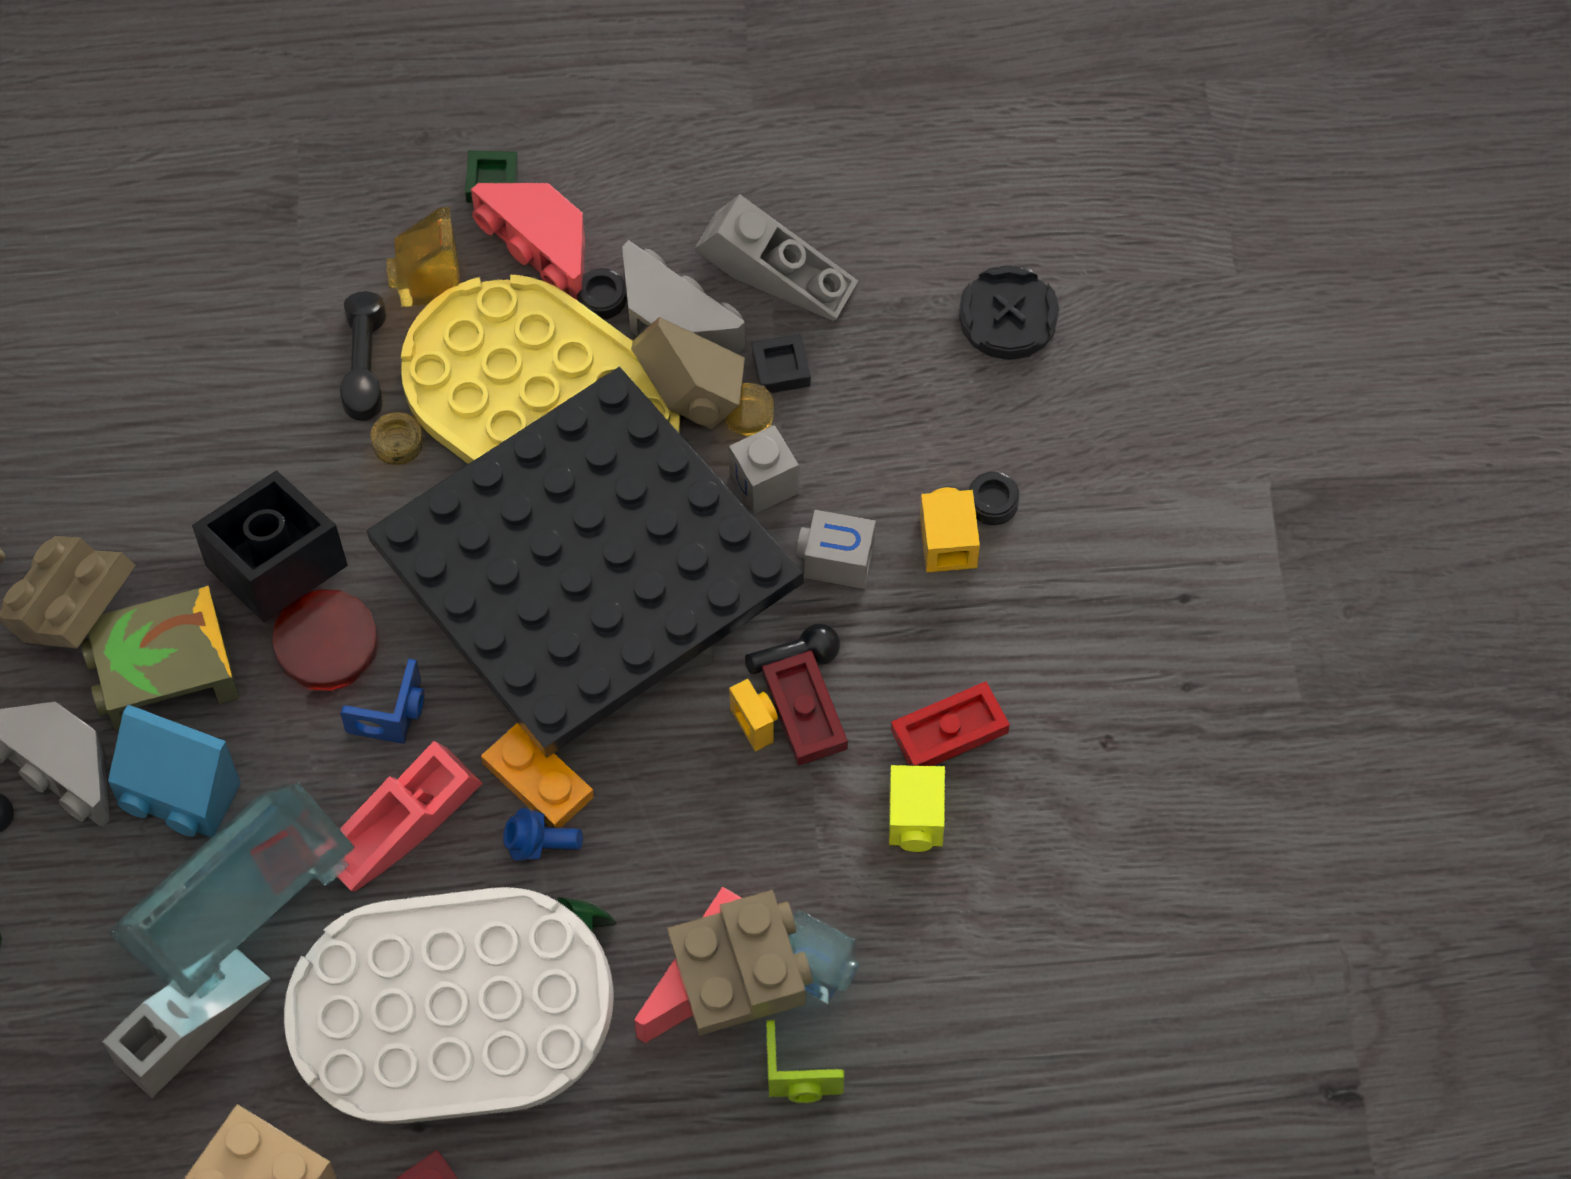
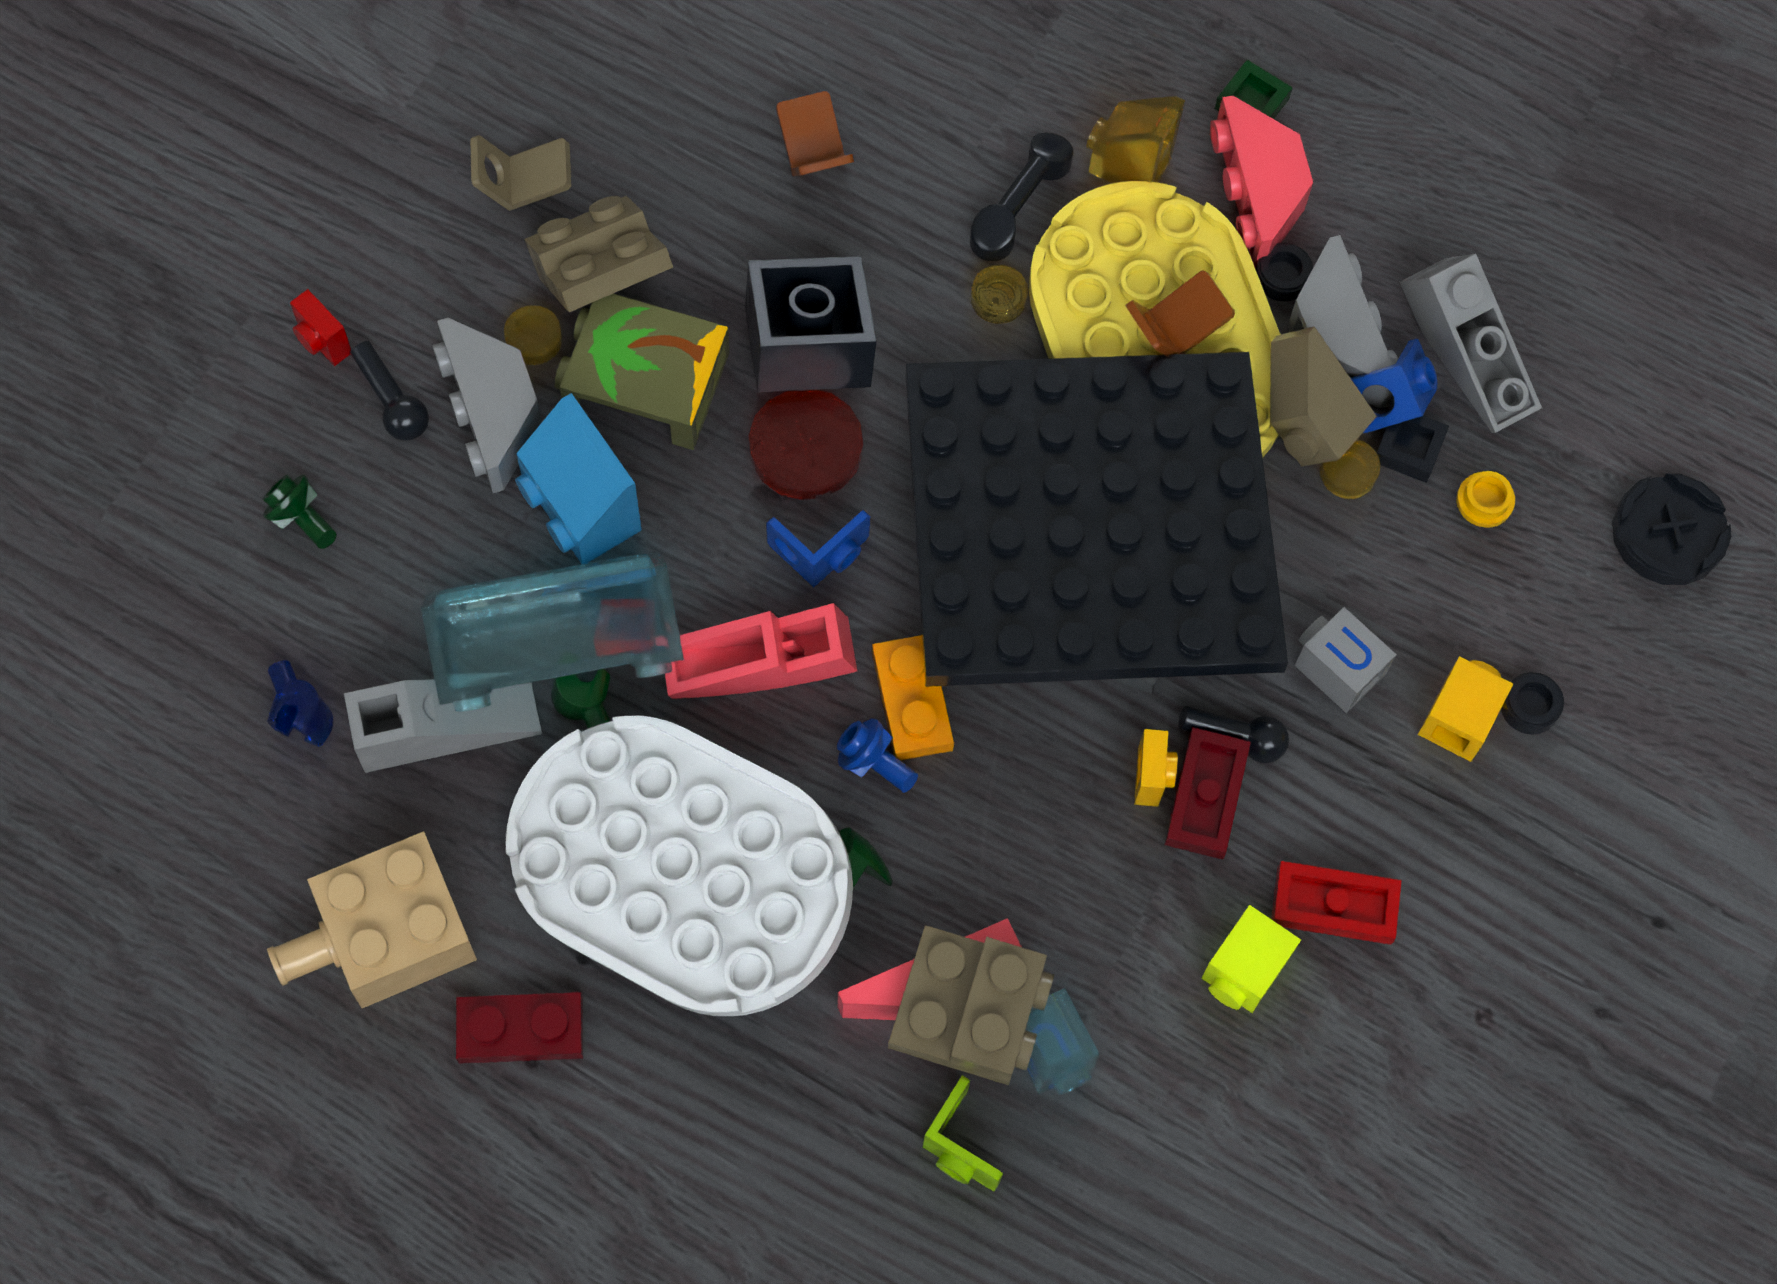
camera: 30 degrees right, 5 degrees up
(51, 683) = (535, 333): none -> clear yellow tile
(61, 1078) = (298, 706): none -> clear blue piece
(169, 404) = (811, 134): none -> dark orange bracket
(284, 936) = (582, 699): none -> dark green piece
(554, 367) = (1184, 315): none -> dark orange bracket
(752, 317) = (1410, 382): none -> blue bracket
(764, 469) = (1323, 536): light grey brick -> none
(862, 371) = (1485, 499): none -> yellow plate

